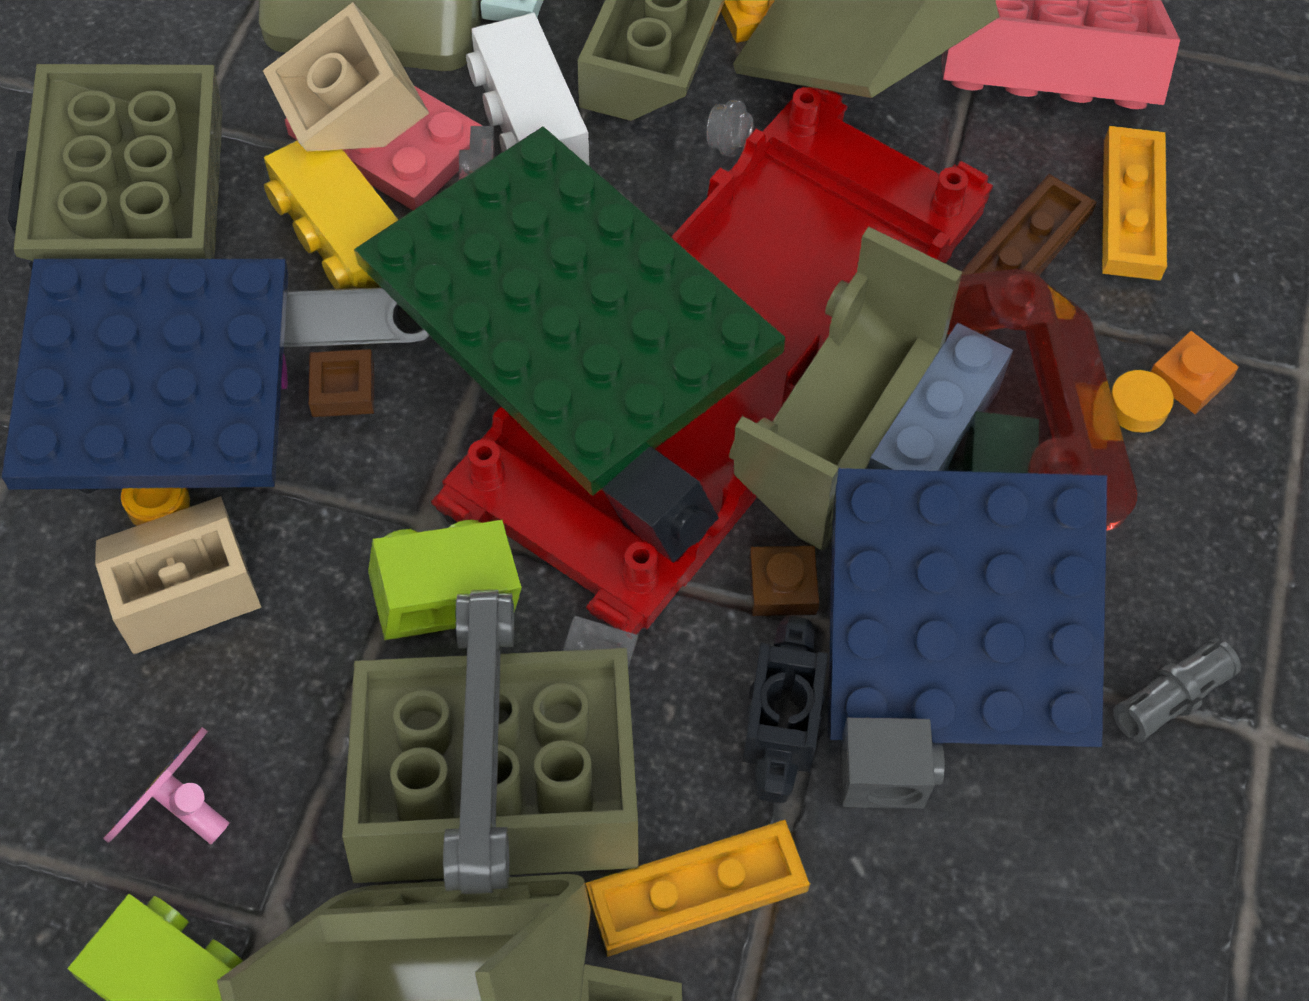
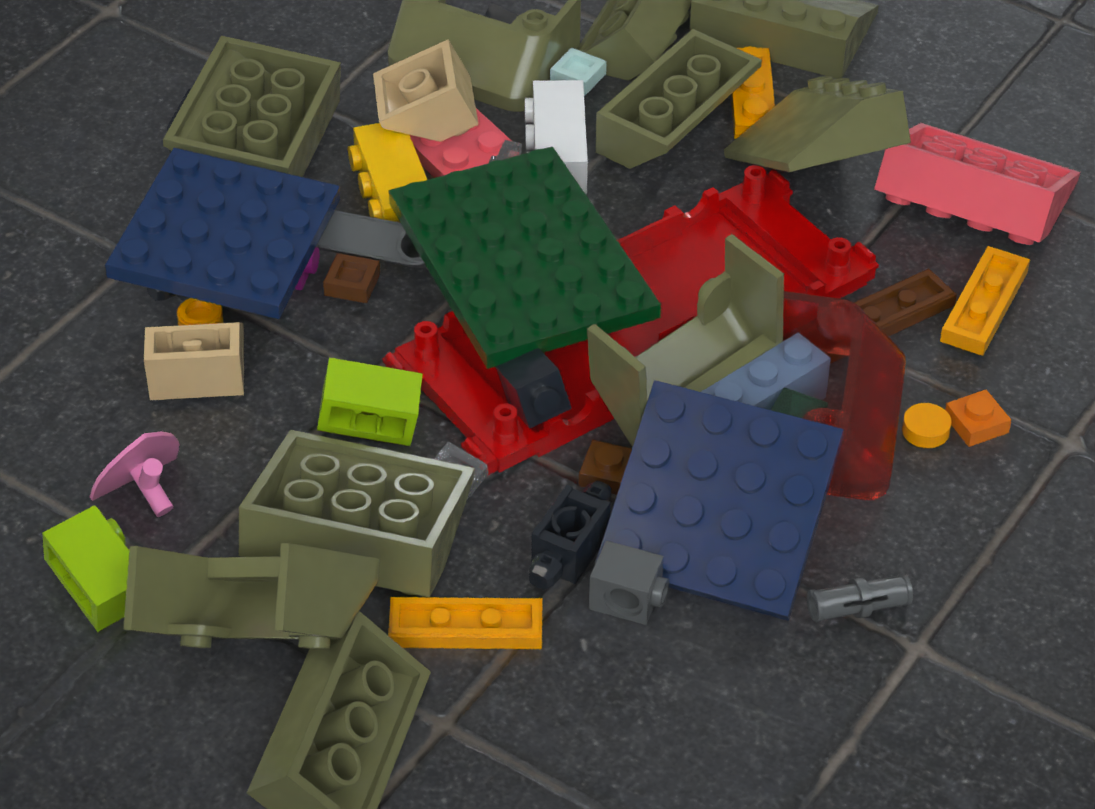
camera: 20 degrees right, 15 degrees down
(478, 850) = (321, 519): dark grey piece -> none
(729, 127) = (694, 182): clear plate -> none

